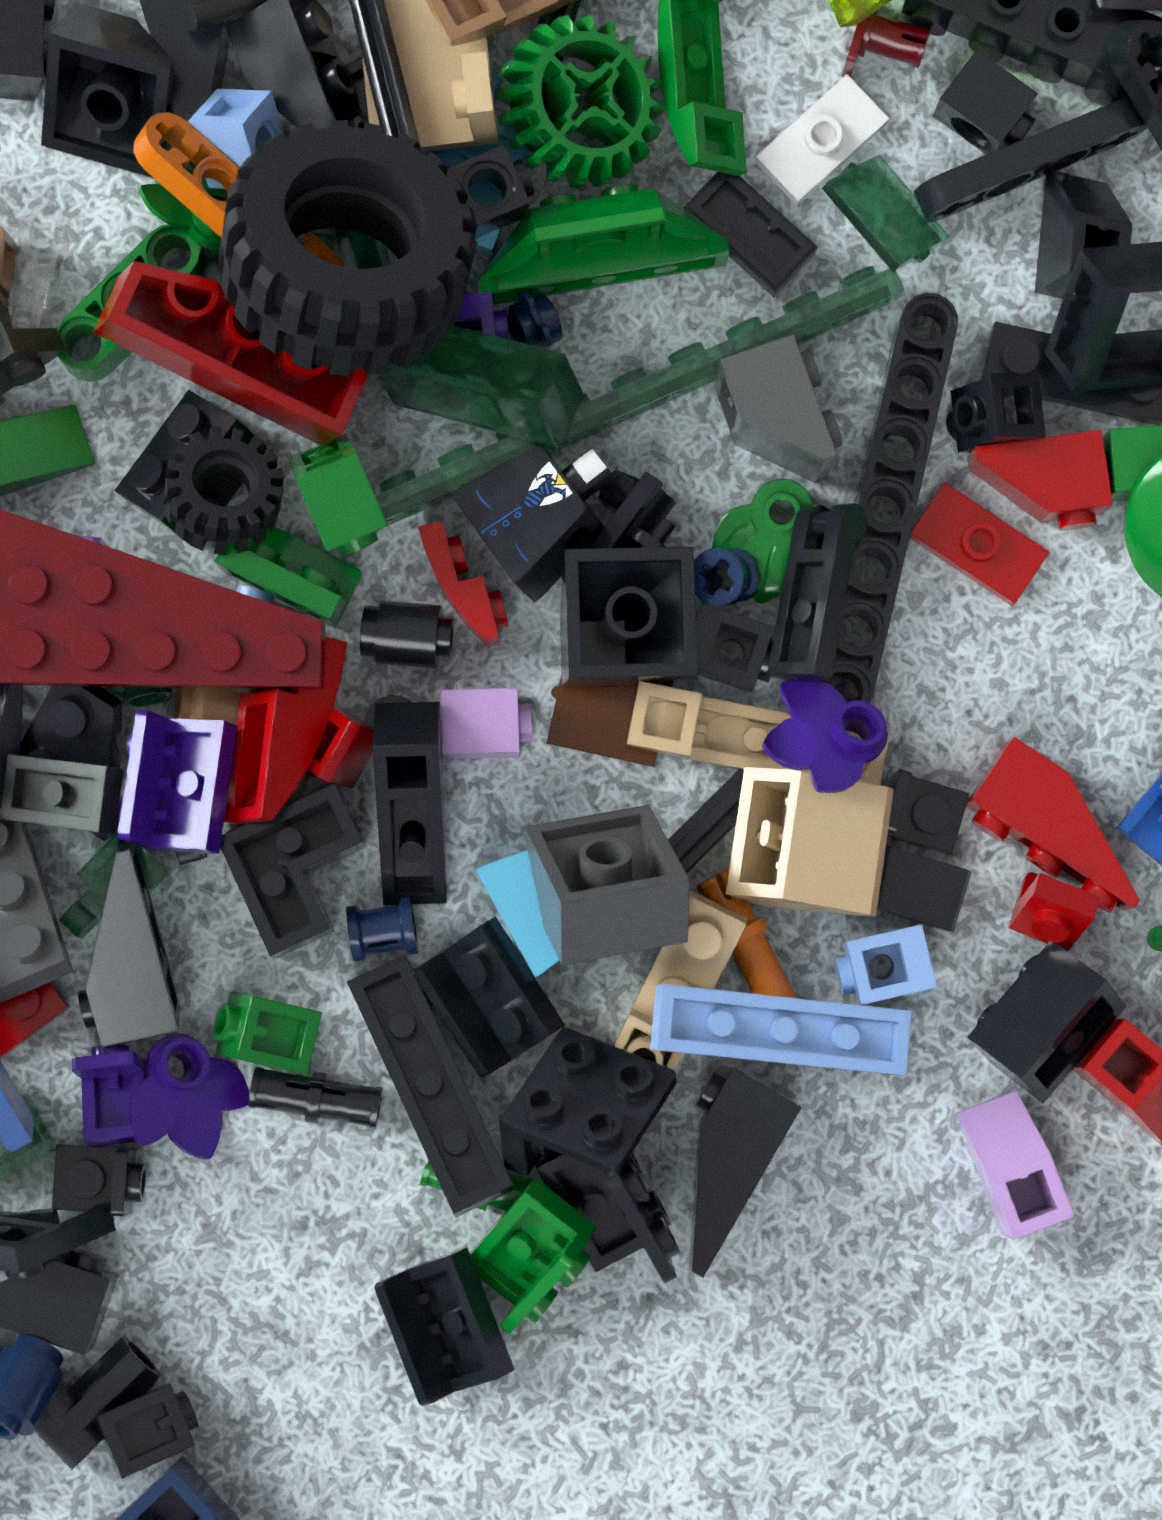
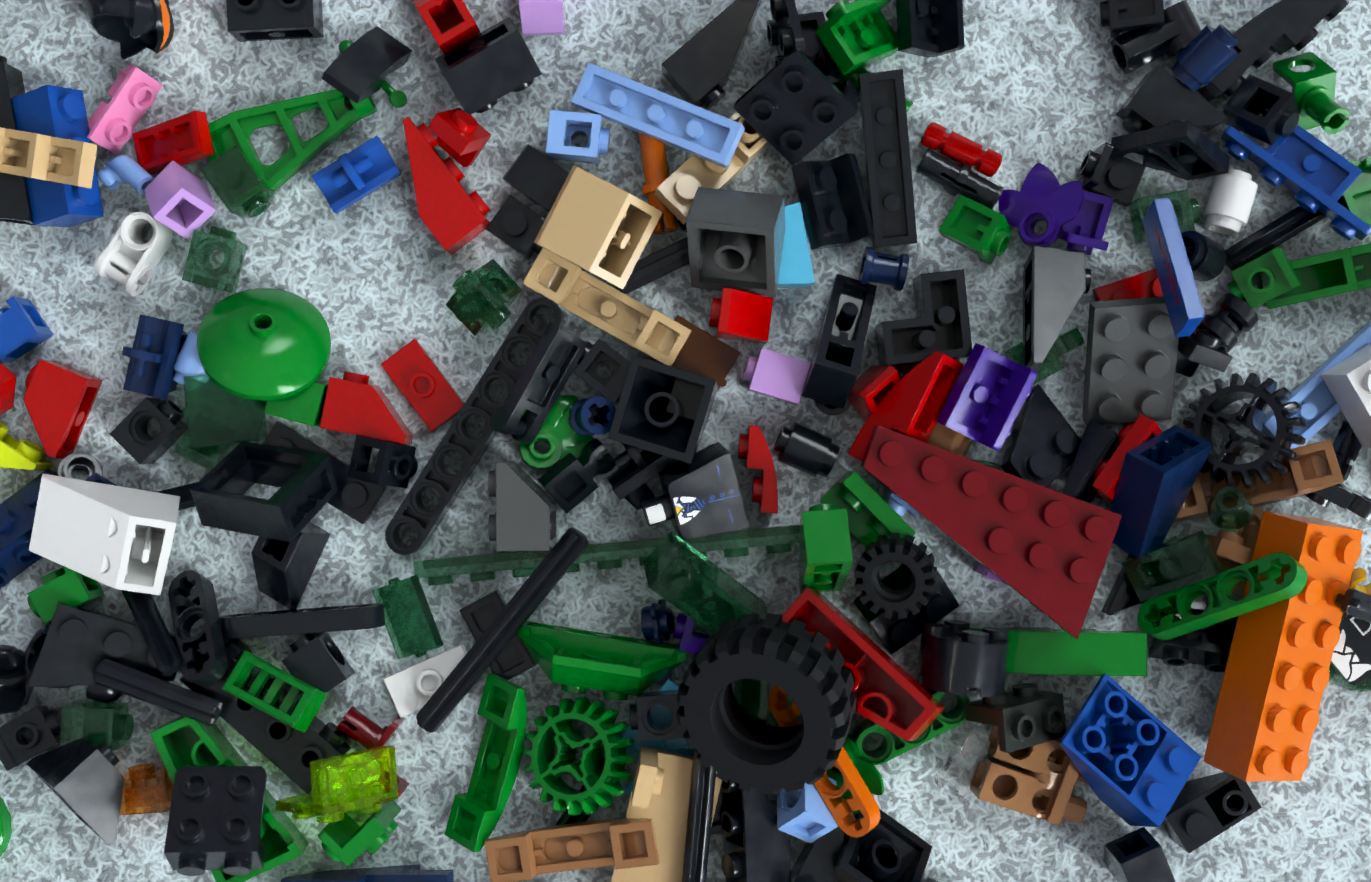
camera: 155 degrees left, 5 degrees up
(61, 794) = (1061, 416): pearl dark grey plate -> none
(88, 411) = (963, 659): none -> black brick
(327, 1142) = (961, 149): none -> red axle
(563, 784) = (741, 316): none -> red slope
(720, 483) = (572, 479): none -> black plate
(747, 237) = (502, 629): none -> black axle
(819, 737) = (570, 290): dark purple plate -> none
(937, 690) = (483, 297): none -> clear green brick
(980, 33) = (303, 712): none -> green slope

